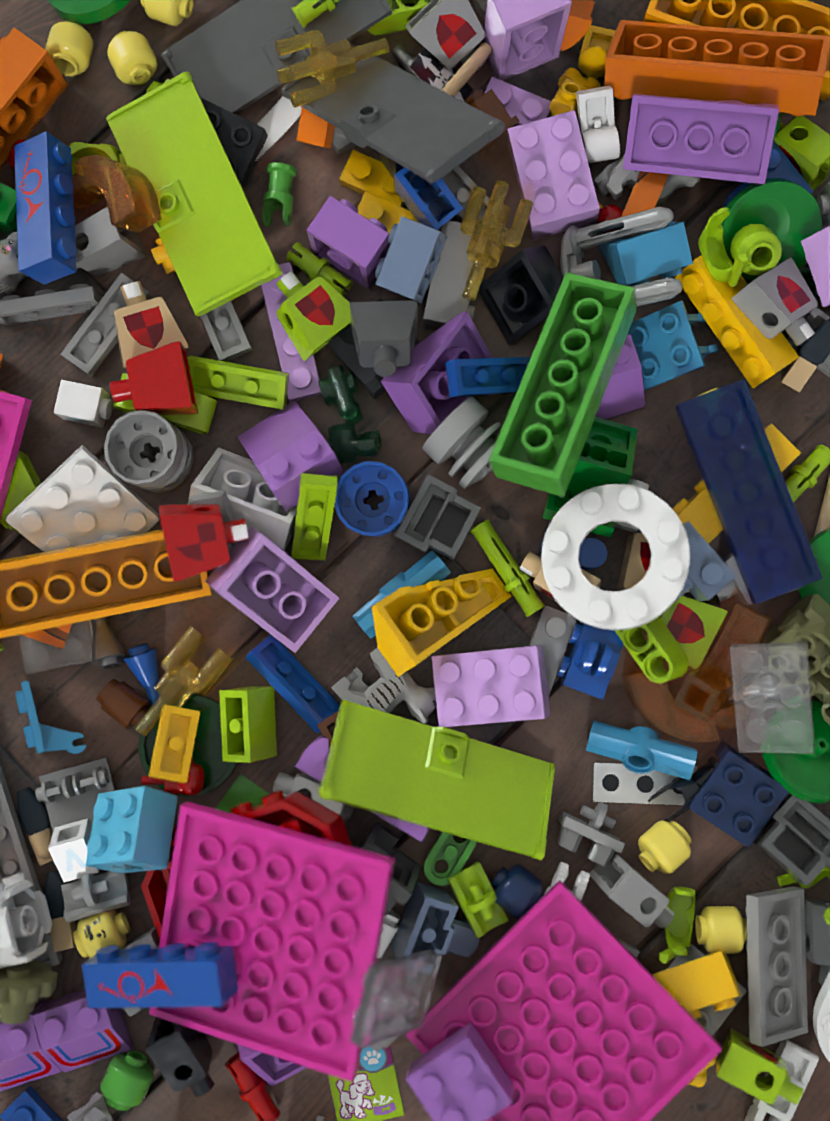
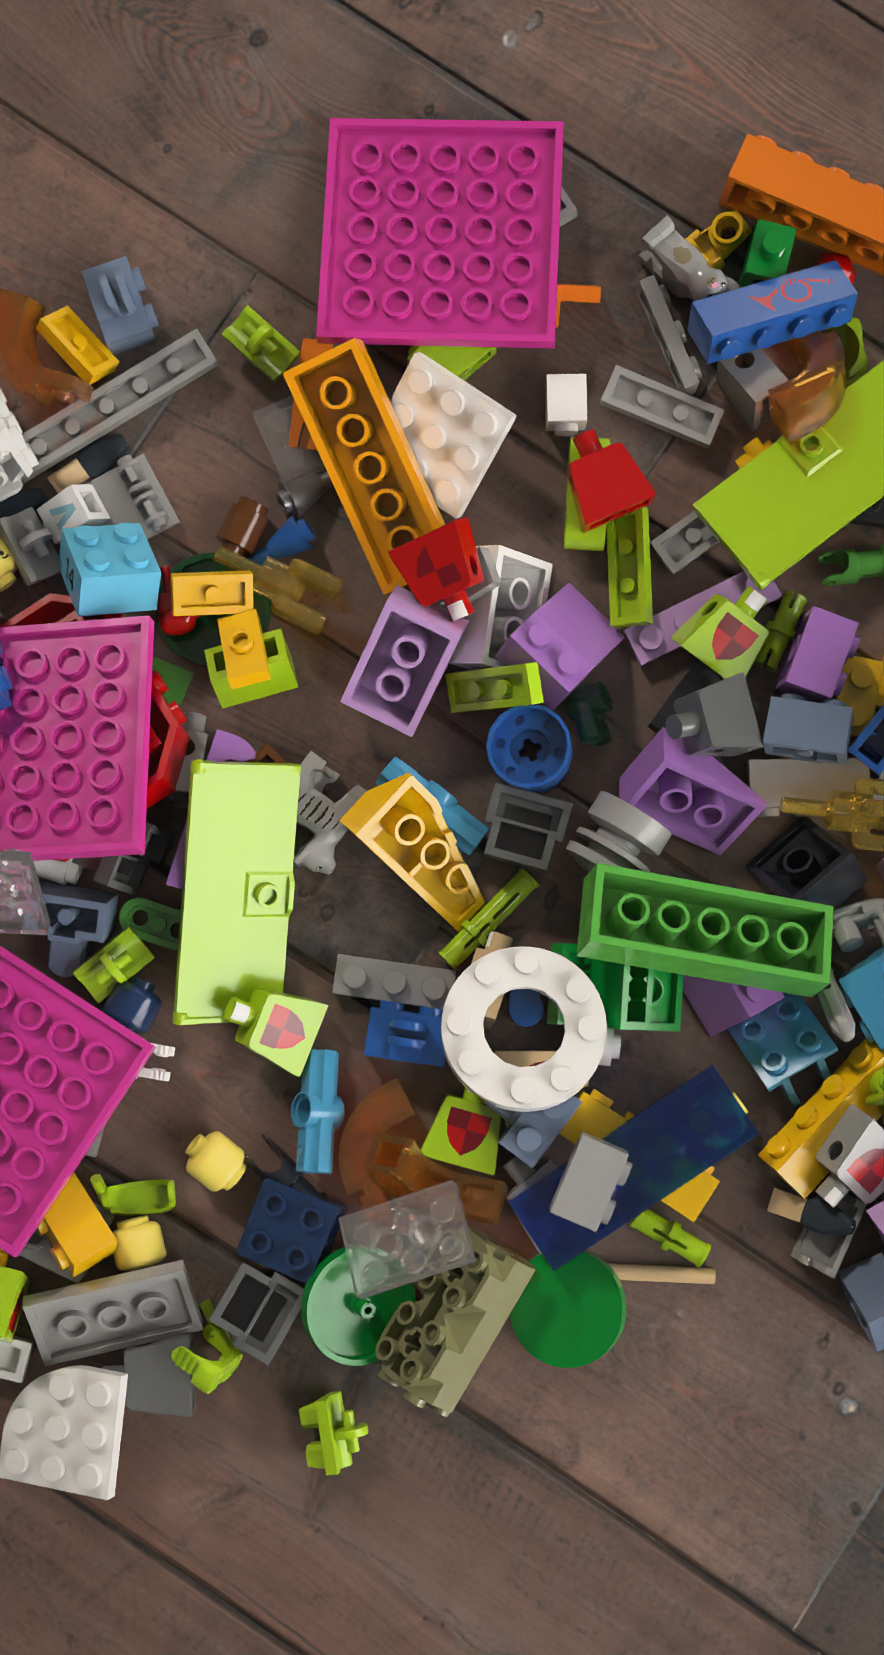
camera: 75 degrees right, 0 degrees up
(42, 736) = (189, 442): dark azure plate -> none
(132, 444) = (532, 469): light grey wheel -> none
(144, 323) = (668, 451): torso -> none
(230, 727) = (243, 649): none -> yellow plate
(292, 681) = (308, 706): blue plate -> none
(340, 390) = (647, 685): clear green plate -> none
(485, 376) = (697, 842): blue plate -> none
(491, 686) = (351, 927): lavender brick -> none
(562, 768) = (277, 1026): none -> torso
(603, 843) = (214, 1057): light grey hips -> none
(619, 785) = (272, 1101): white sticker -> none
(633, 892) = (159, 1134): light grey torso -> none
(650, 654) = (431, 1099): lime beam -> none
(758, 529) = (590, 1182): none -> light grey brick

